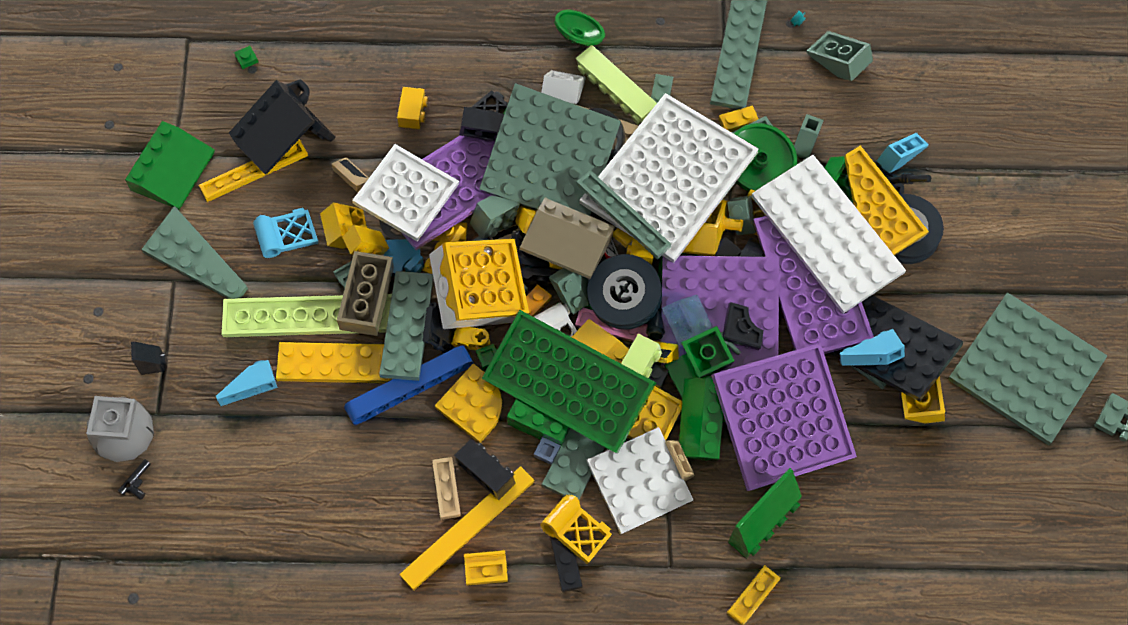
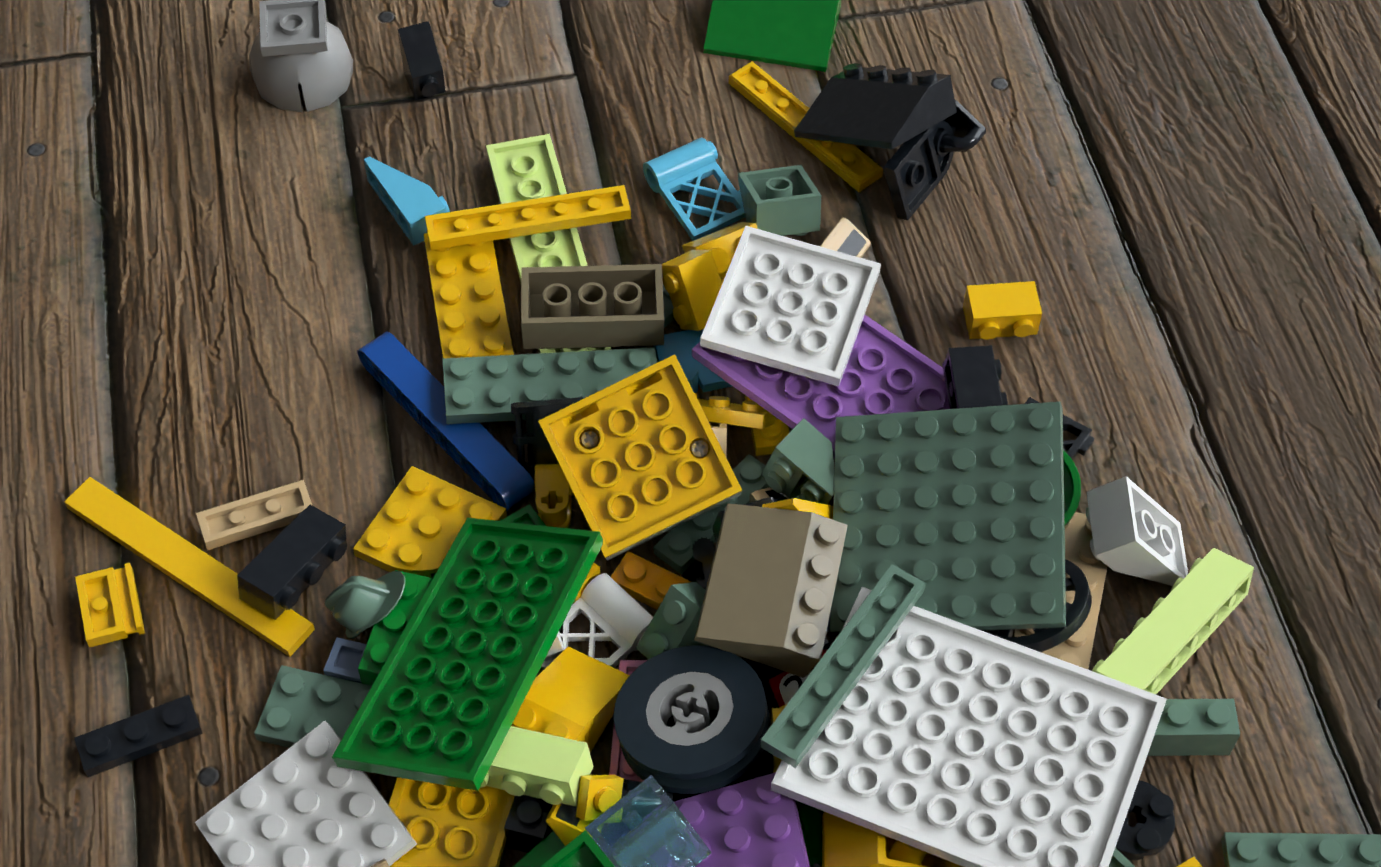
camera: 80 degrees right, 10 degrees down
(135, 482) = (220, 104): black hose -> none
(186, 251) = (623, 81): sand green wing -> none
(246, 57) = (1017, 68): green plate -> none
(288, 318) = (527, 217): none -> yellow plate
(310, 191) = (781, 200): none -> sand green slope
(521, 431) = (365, 601): none -> sand green piece
(560, 522) = (211, 708): yellow piece -> none
(579, 28) = (1290, 542): green dish -> none
(659, 336) = (597, 795): none -> yellow plate

